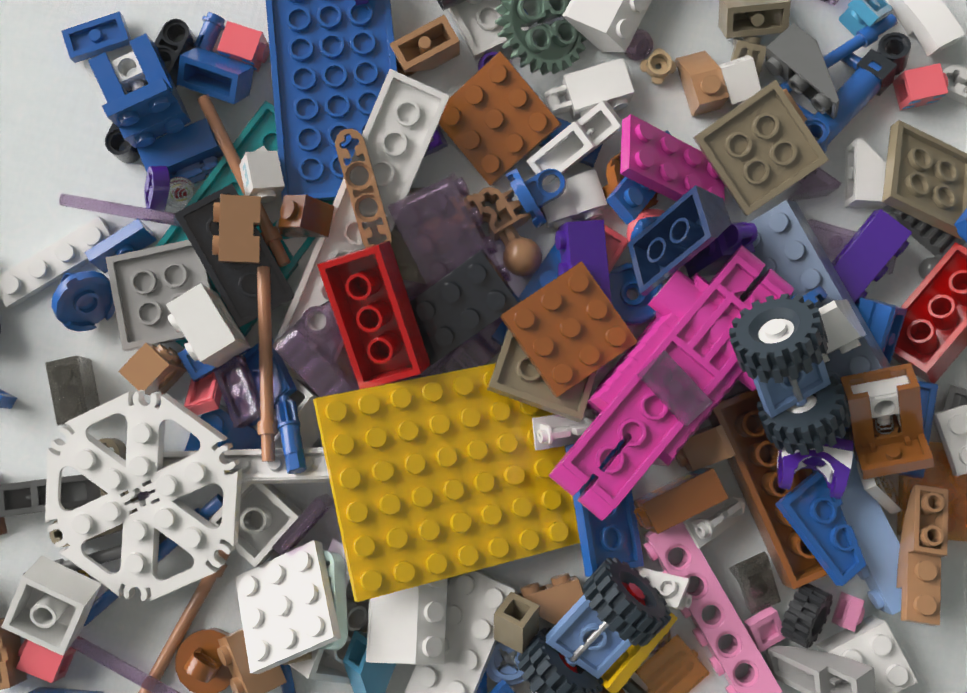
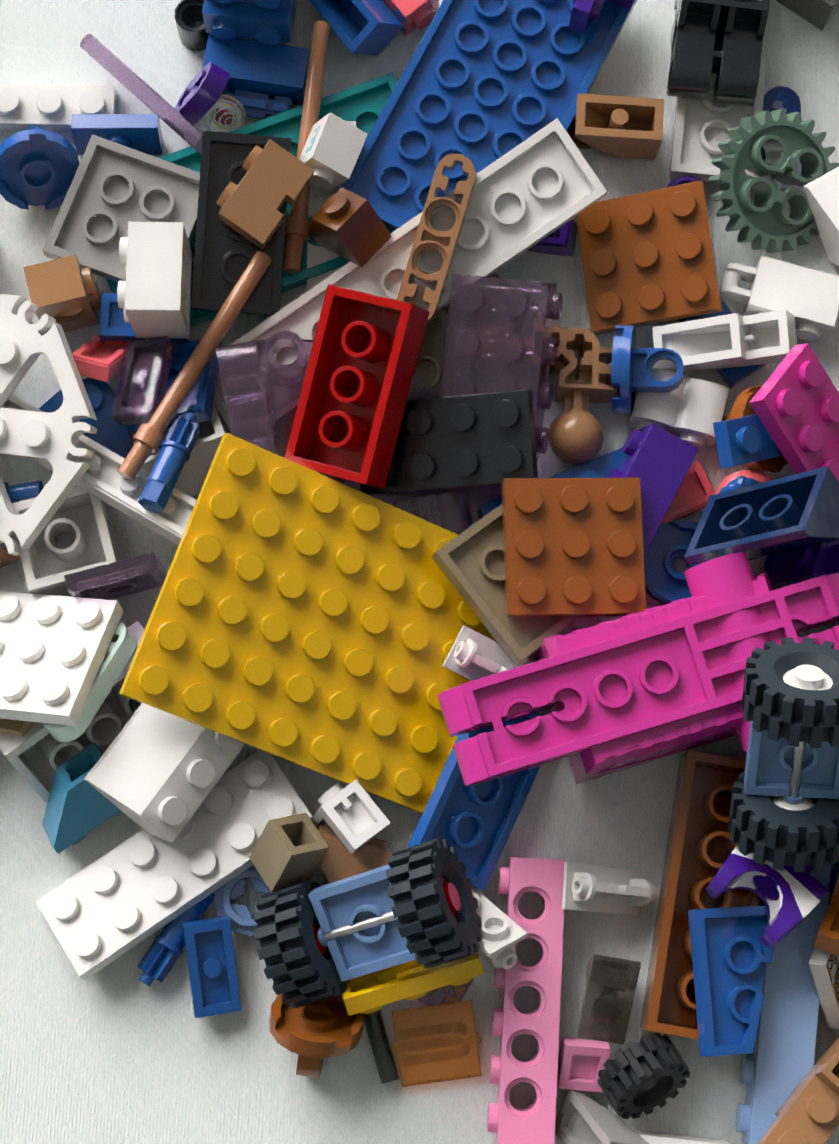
camera: 30 degrees right, 5 degrees down
(538, 575) = (351, 815): none -> white bracket
(674, 388) = (649, 679): clear purple plate -> none
(679, 500) = (576, 836): dark orange brick -> none
(705, 448) = (645, 795): medium nougat slope -> none
(848, 612) = (700, 1112): bright pink plate -> none

